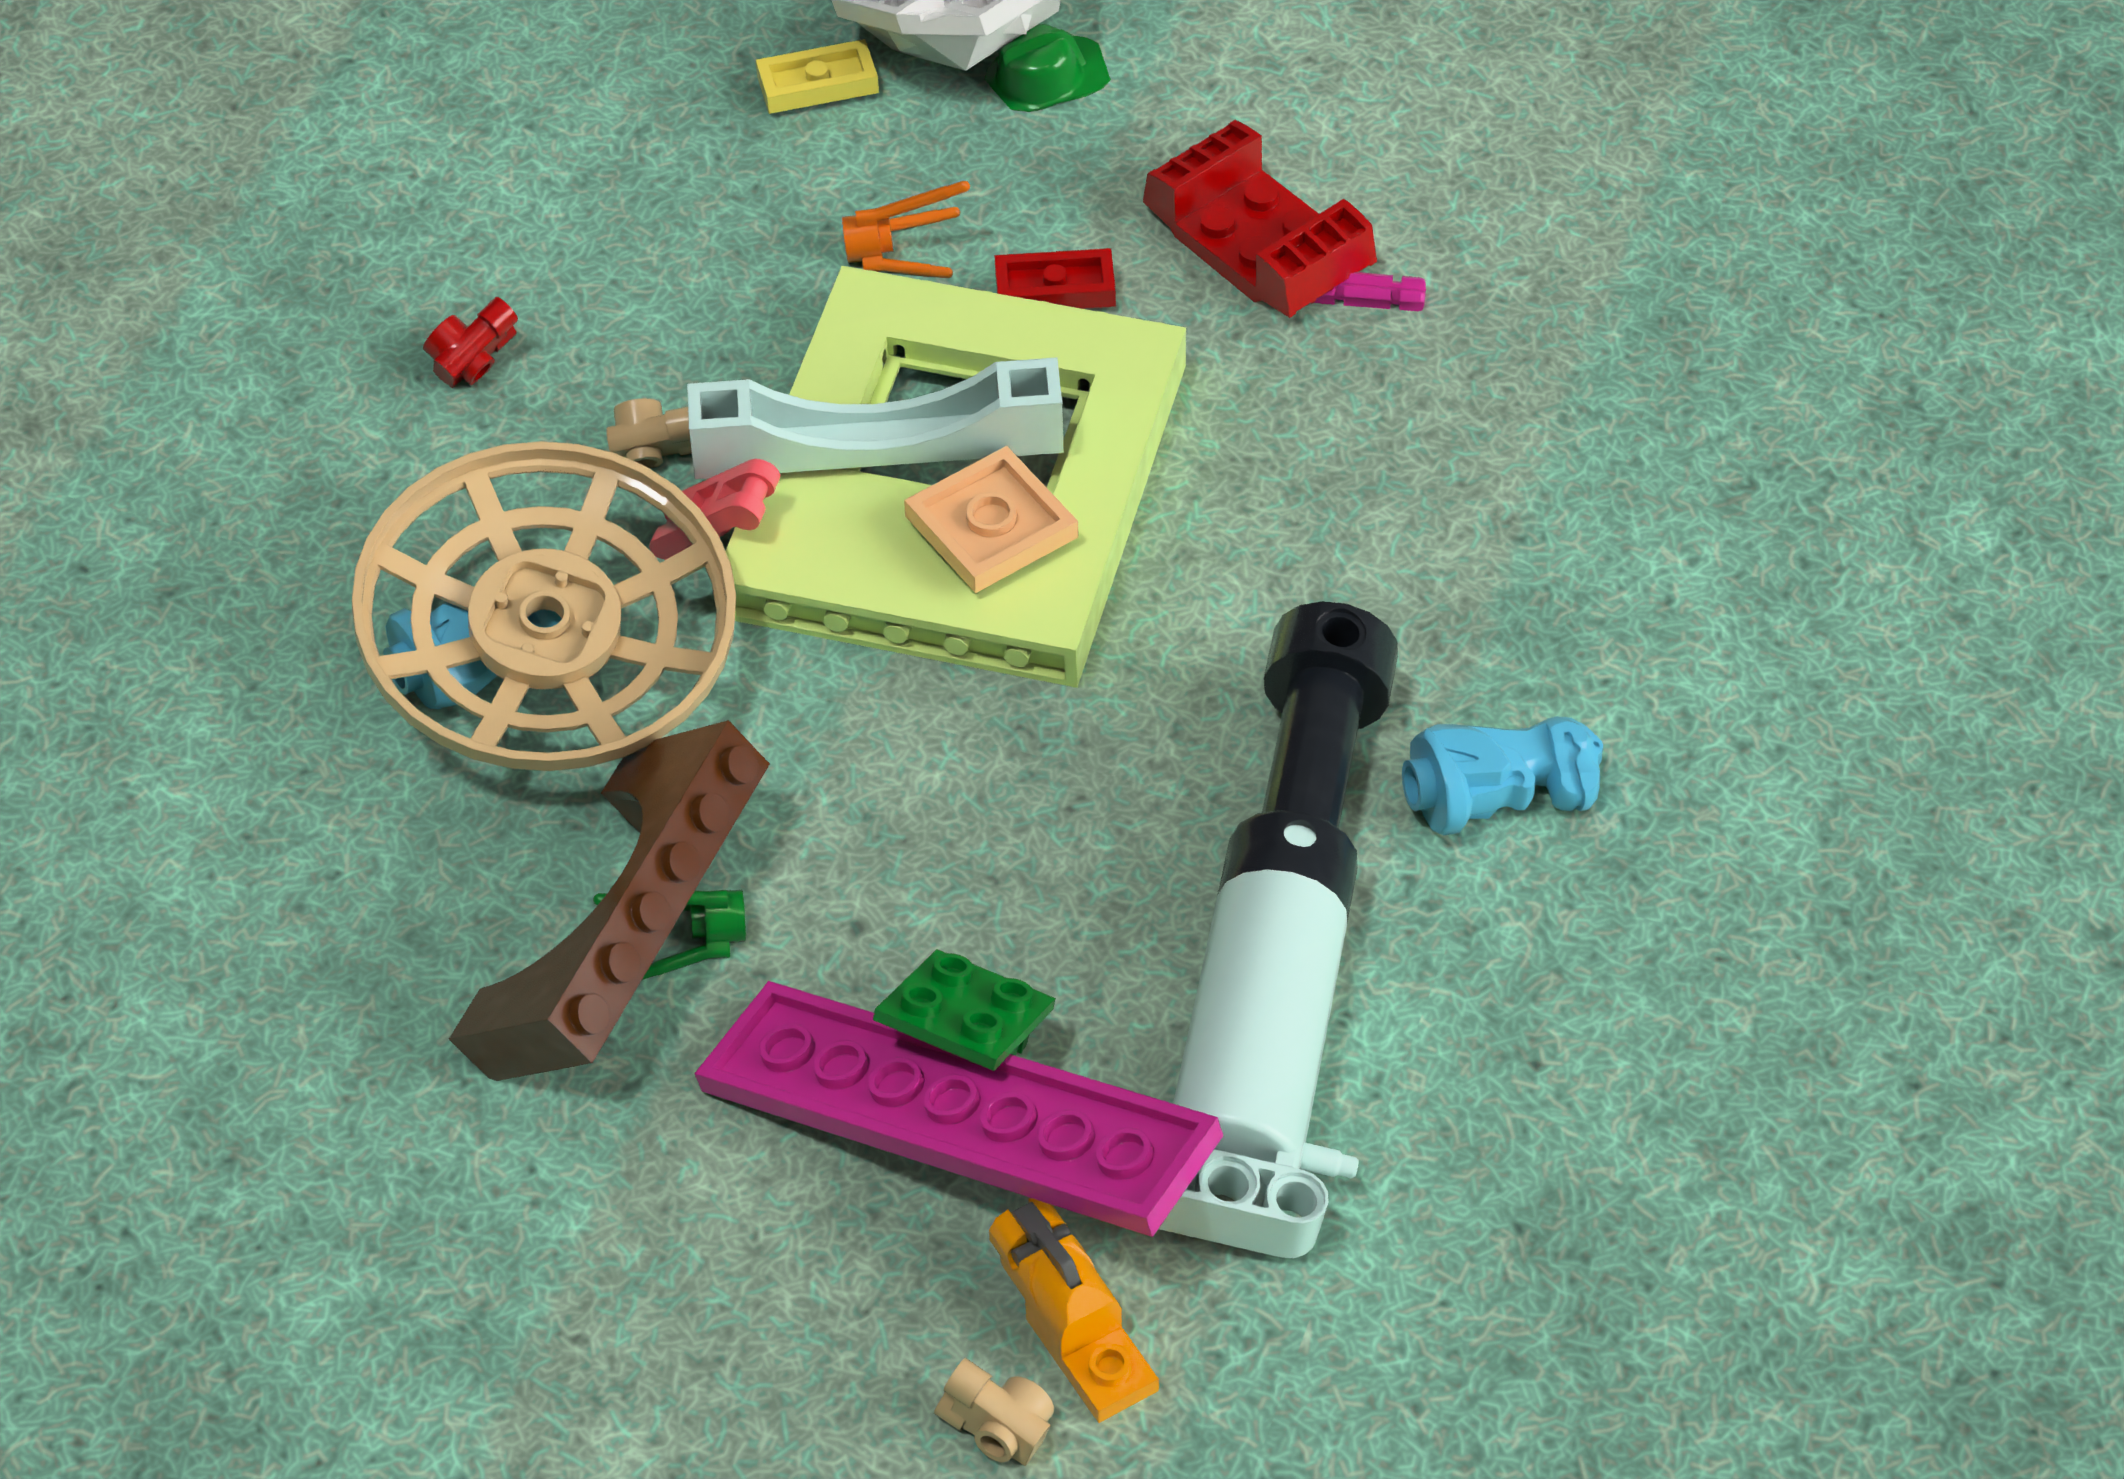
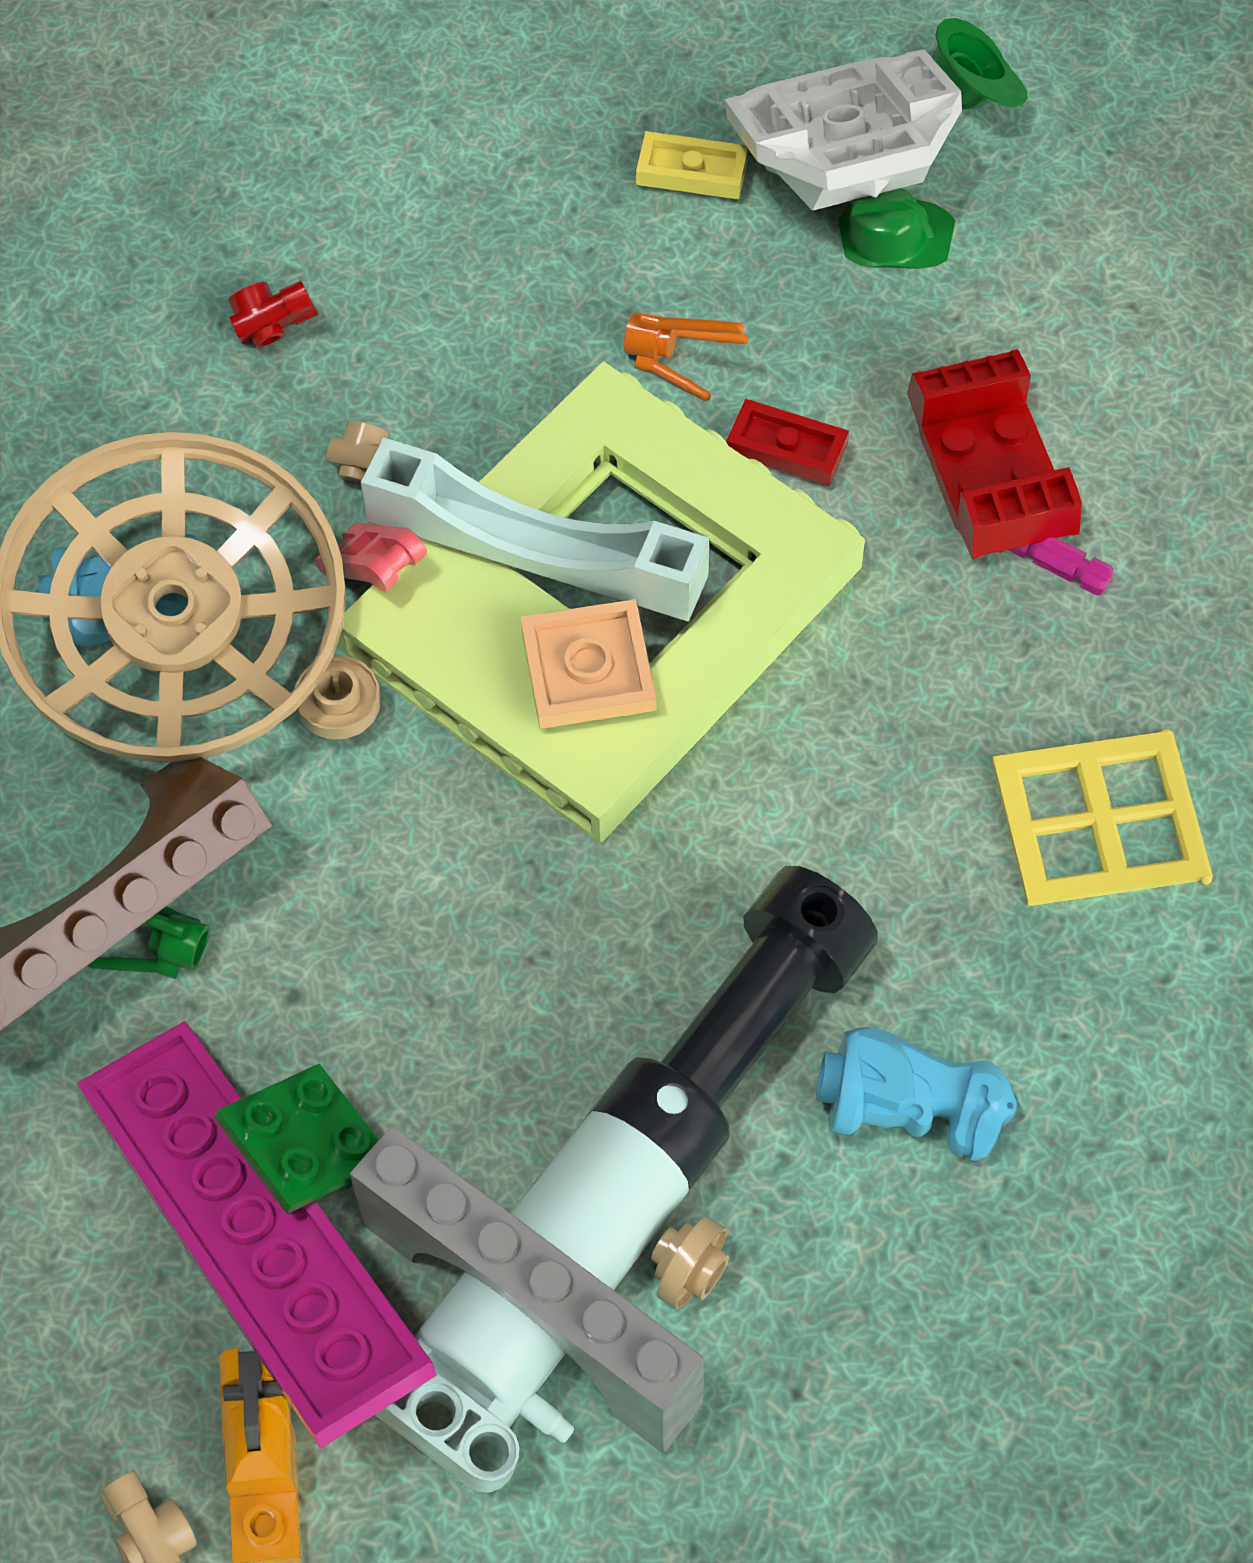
camera: 25 degrees right, 10 degrees up
(759, 653) = (343, 700): none -> tan plate
(1380, 983) = (690, 1261): none -> tan plate
(1382, 1057) = (428, 1208): none -> light grey arch
(1529, 489) = (1101, 818): none -> light yellow window

